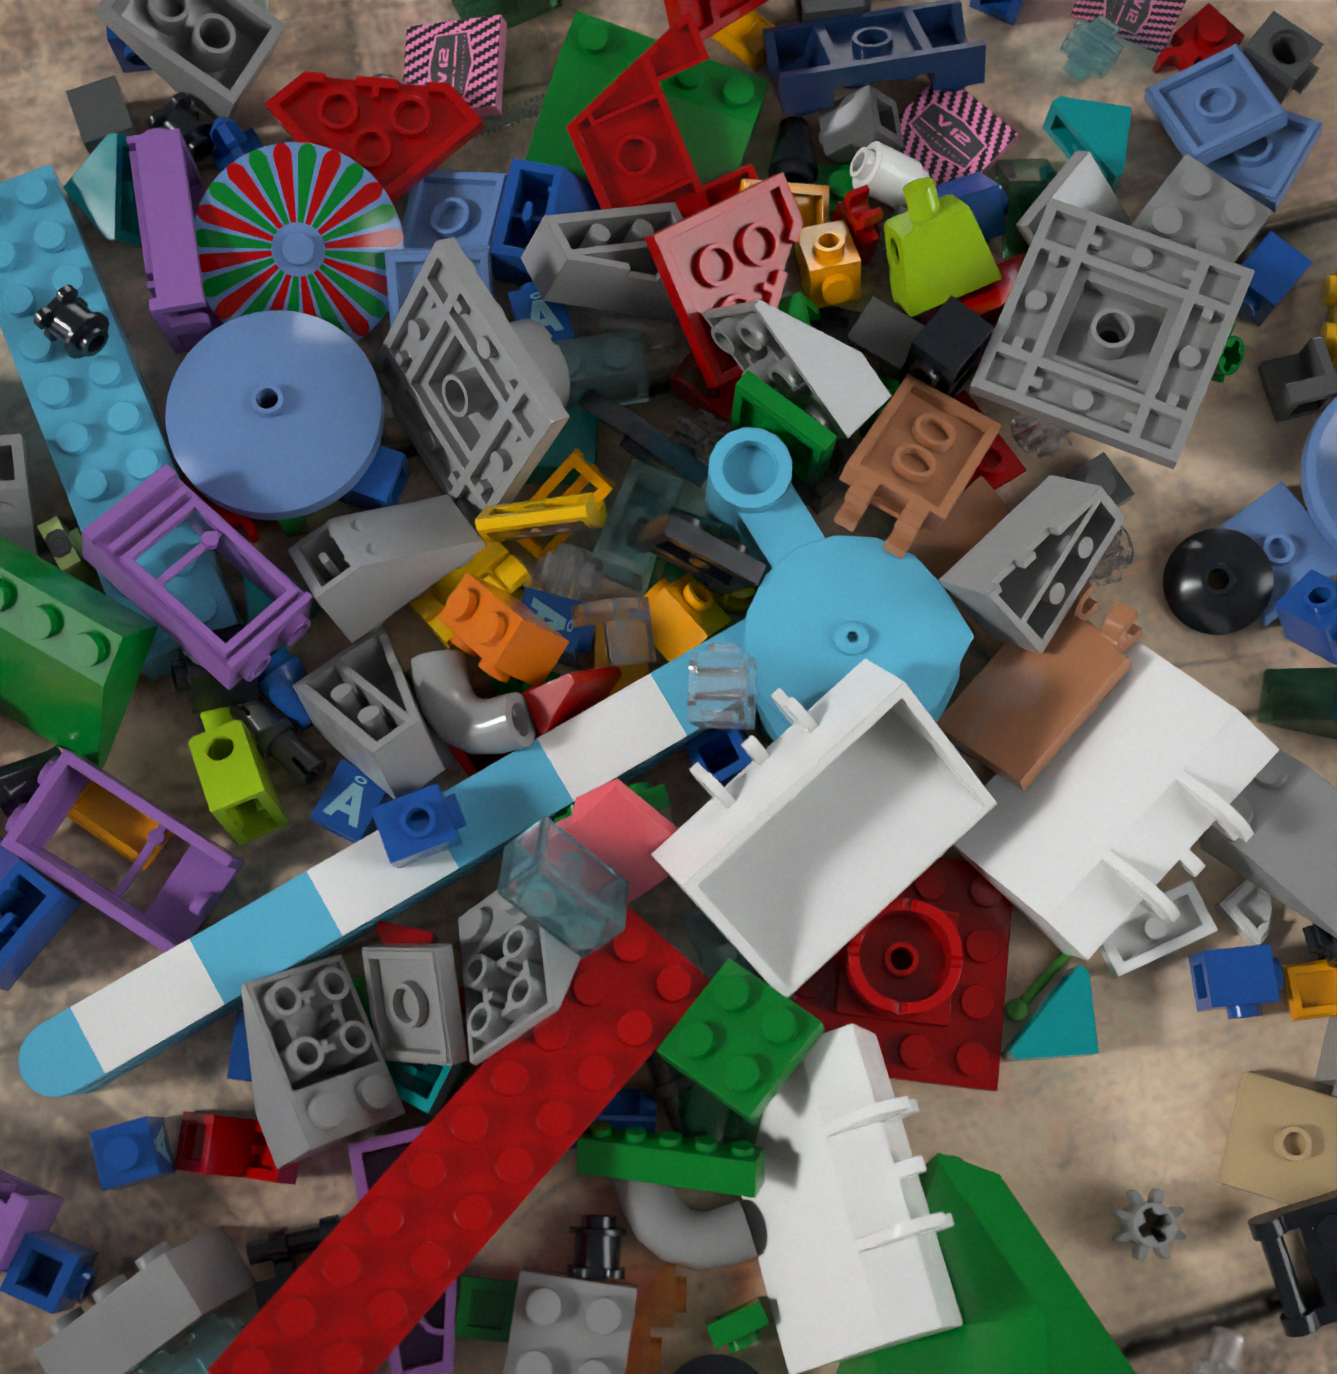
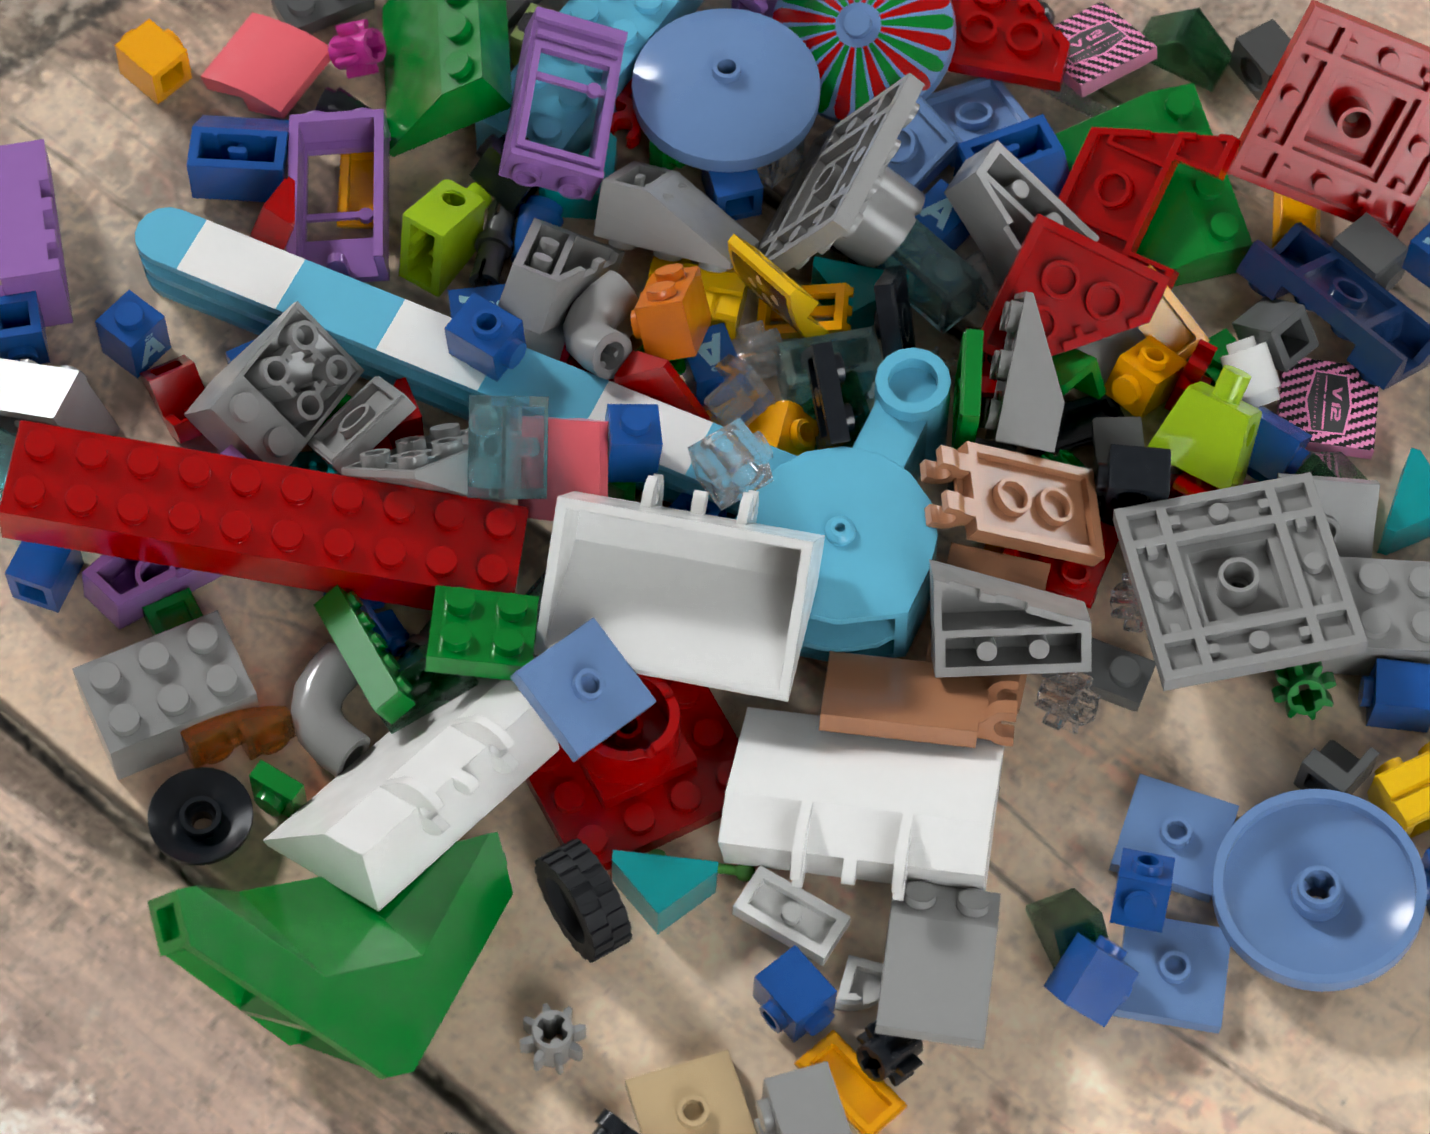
camera: 55 degrees right, 15 degrees down
(117, 938) = (277, 216): none -> red slope
(597, 1248) = (270, 666): black brick -> none
(640, 761) = (633, 441): none -> blue brick
(794, 152) = (1219, 306): black cone -> none
(870, 986) = (583, 689): none -> medium blue plate
(1046, 1113) = (583, 900): none -> black tyre
(1224, 609) = (1119, 822): black dish -> none

